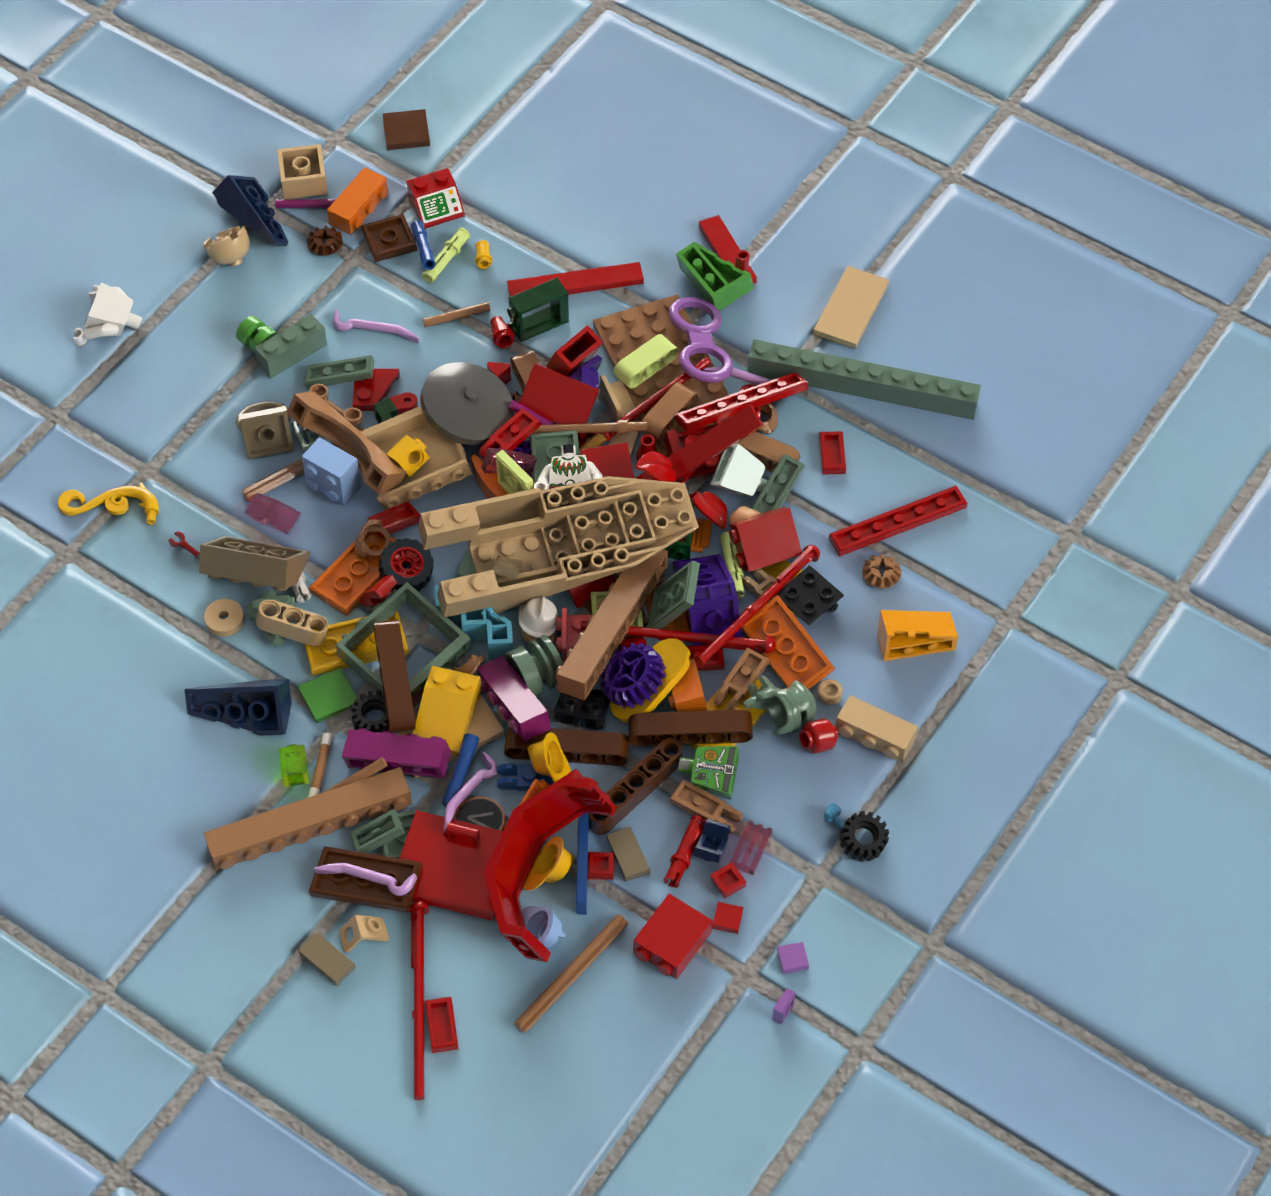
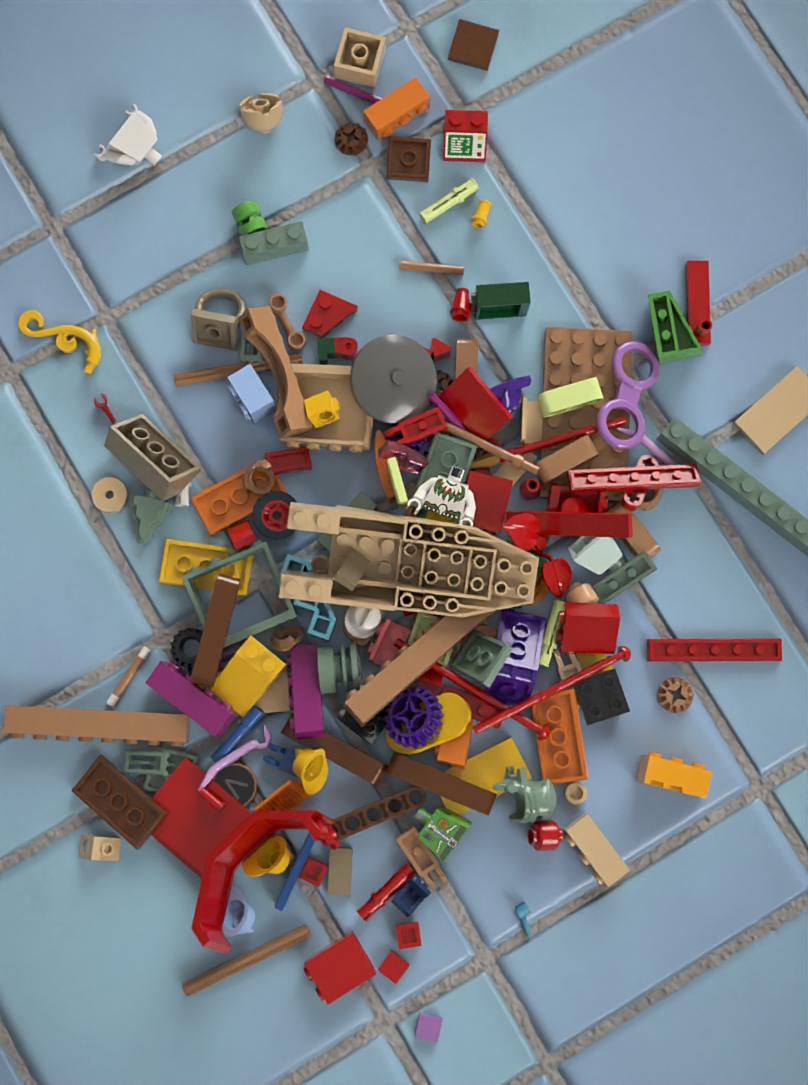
camera: 20 degrees right, 25 degrees up
(247, 202) = (299, 69): dark blue wedge -> none
(251, 705) = (98, 593): dark blue wedge -> none
(270, 510) = (190, 408): clear pink slope -> none
(294, 765) = (107, 667): clear neon green brick -> none
(304, 622) = (151, 525): tan beam -> none
(326, 959) = (61, 857): dark tan tile -> none
(328, 695) = (164, 608): bright green piece -> none
(340, 371) = (304, 288): sand green tile -> none
(363, 773) = (145, 707): medium nougat bar -> none
(369, 875) = (121, 806): lavender piece -> none
(375, 326) = (353, 248): lavender piece -> none
(417, 911) = (149, 848): red bar -> none
(425, 253) = (434, 174): blue piece -> none
(441, 1024) = (126, 957): red tile -> none
(575, 352) = (507, 367): red brick -> none
(585, 280) = (550, 277): red tile -> none
(744, 673) = (506, 754): medium nougat hinge -> none
(757, 829) = (448, 917): clear pink tile -> none
(784, 1006) = (399, 1071): medium lavender tile -> none
(832, 453) = (690, 555): red tile -> none
(856, 848) = (537, 961): black tyre -> none

